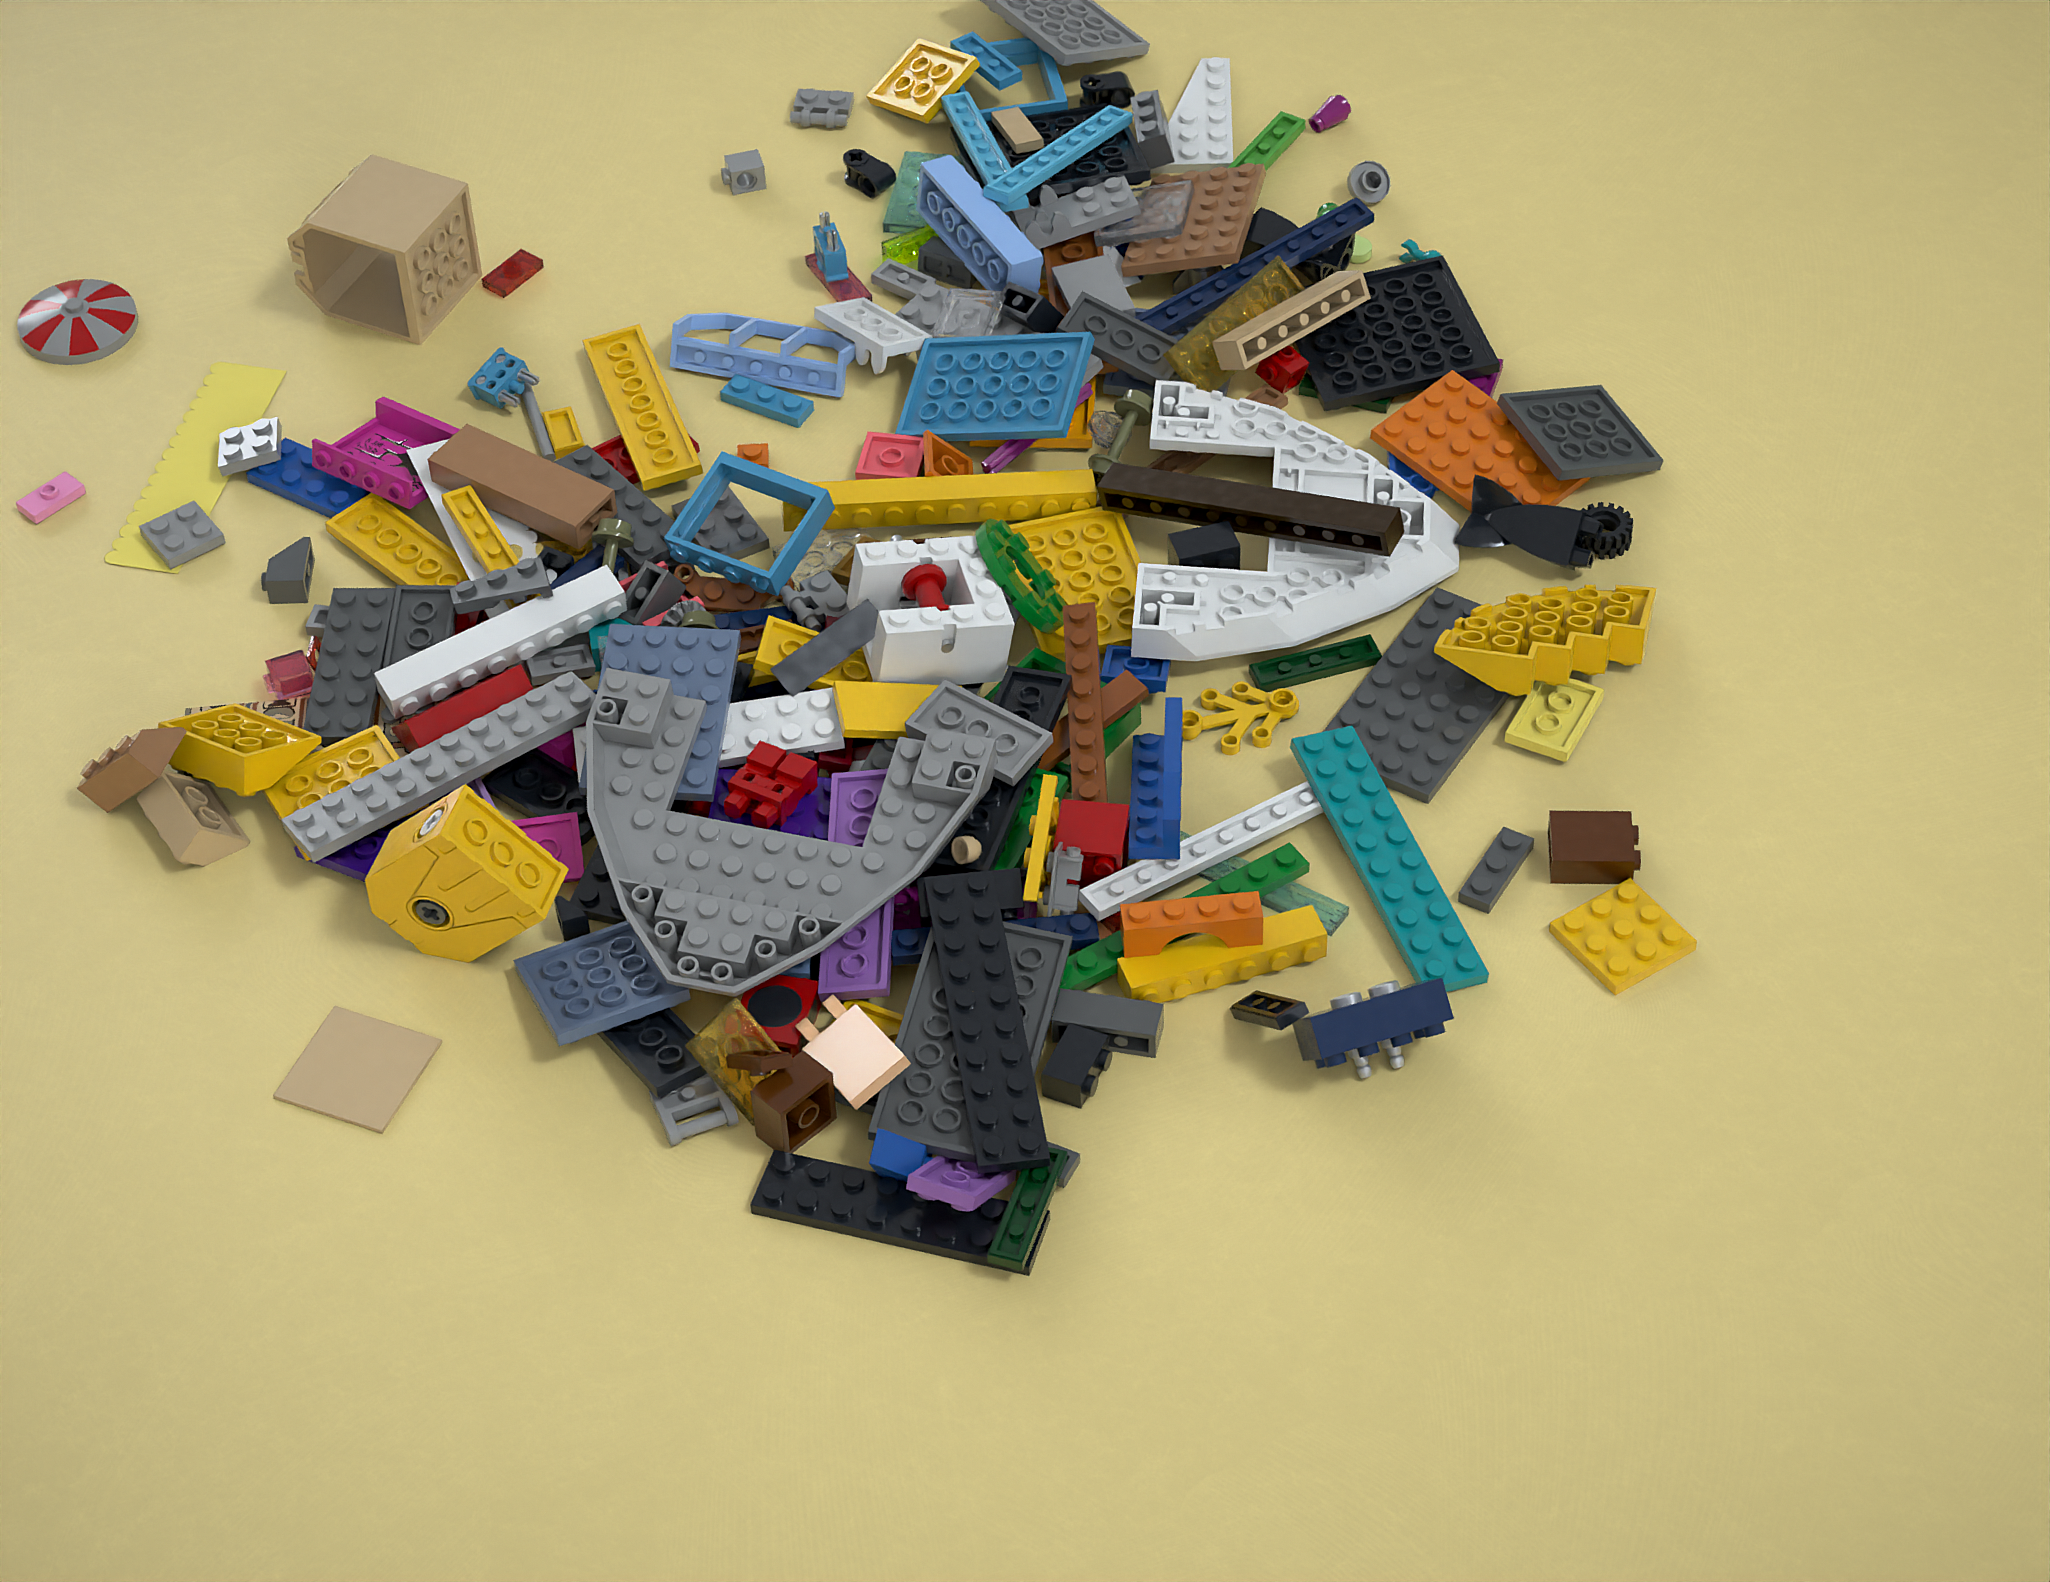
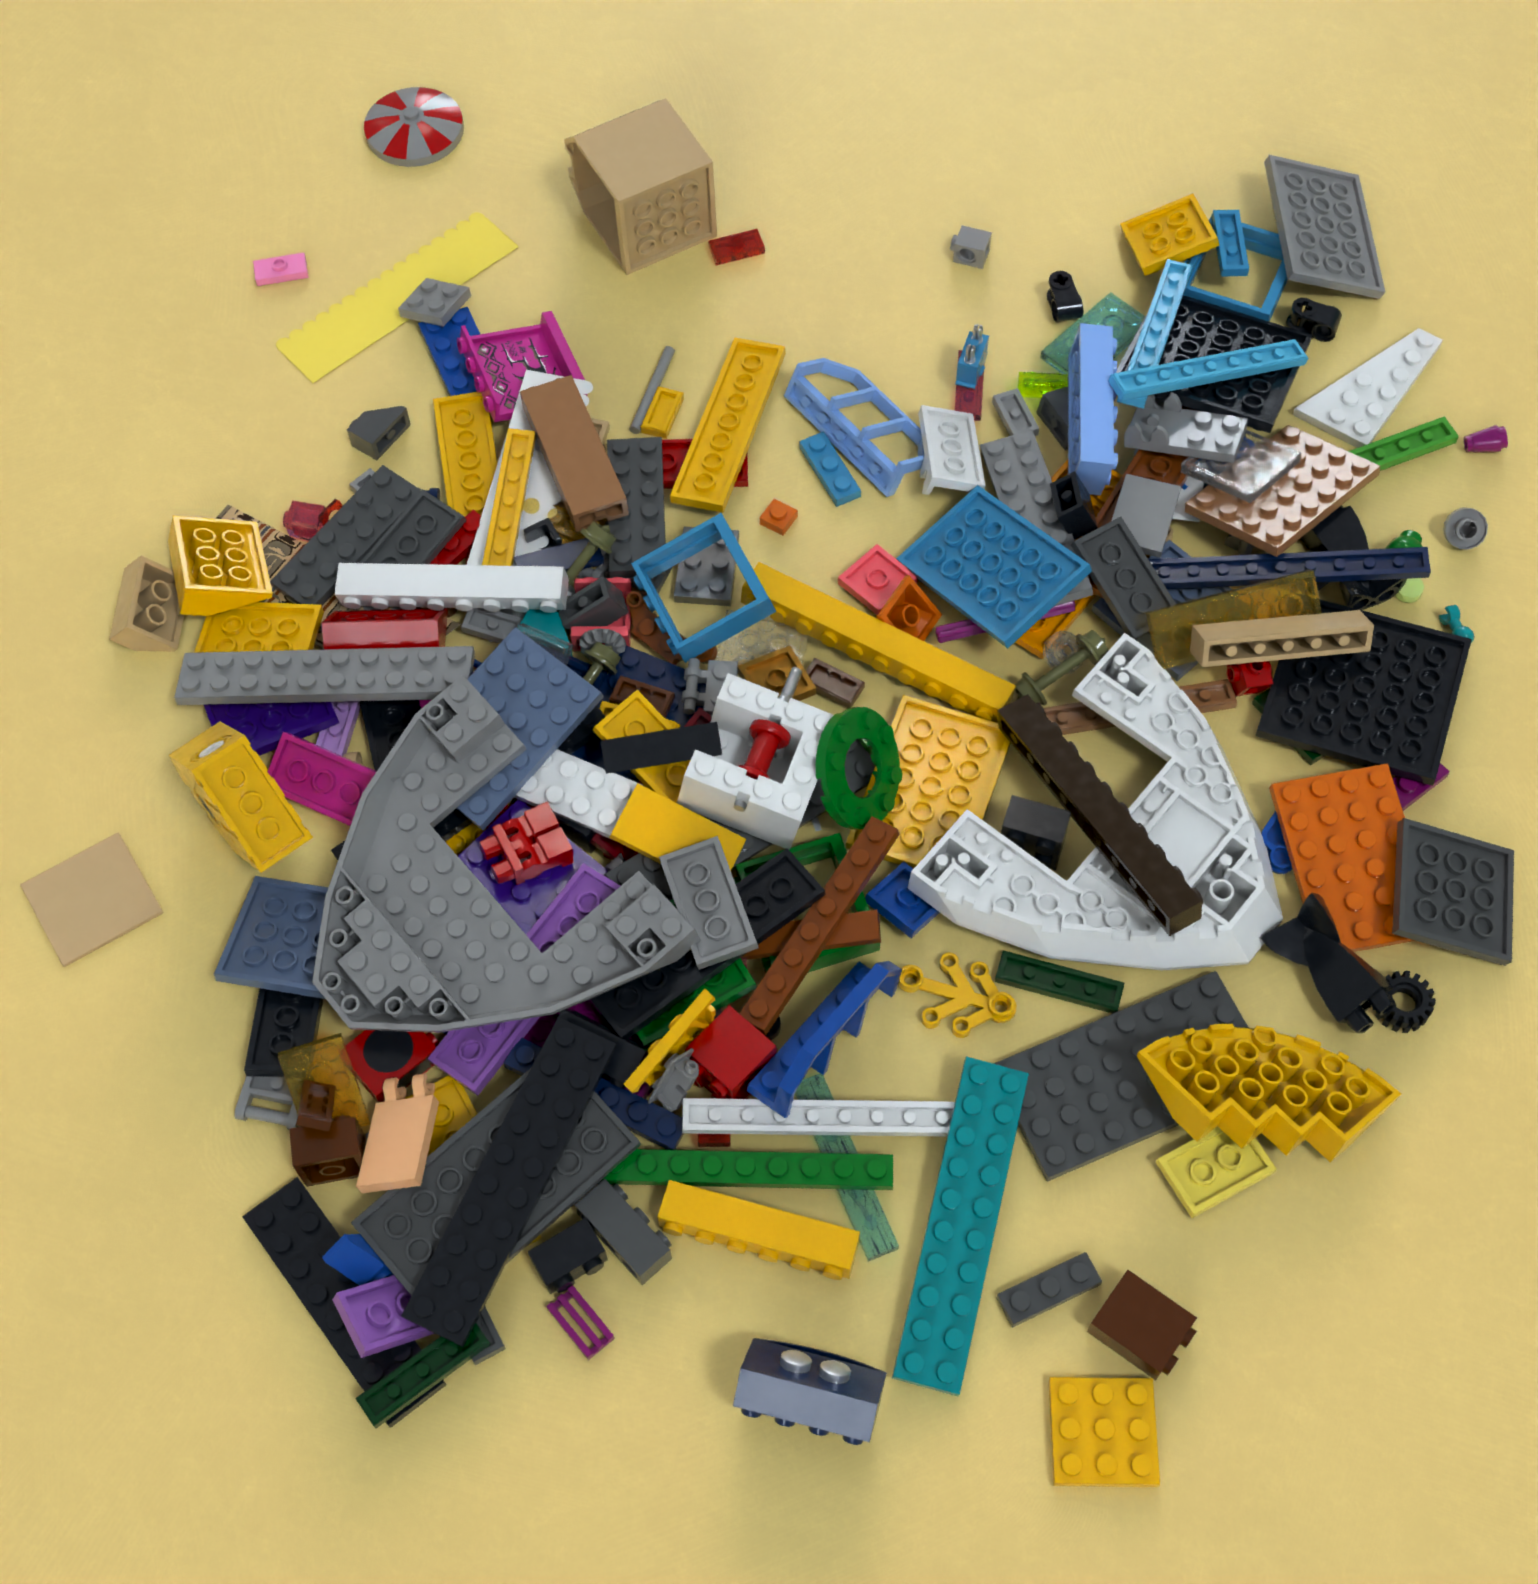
camera: 35 degrees right, 15 degrees up
(129, 766) = (127, 542): medium nougat slope -> none
(182, 534) = (337, 352): light grey plate -> none
(500, 379) = (649, 340): dark azure piece -> none
(511, 583) = (484, 540): dark grey wing -> none
(571, 919) = (319, 865): black slope -> none
(822, 107) = (1087, 217): light grey plate -> none
(966, 849) = (615, 1008): tan hinge -> none
(968, 313) = (1023, 483): clear tile -> none
(1017, 130) = (1204, 323): tan tile -> none
(1129, 1103) = (563, 1300): none -> magenta tile
(1152, 129) = (1318, 379): dark grey brick -> none
(1153, 924) = (715, 1178): orange arch -> none
(1269, 1010) = (743, 1316): black tile -> none

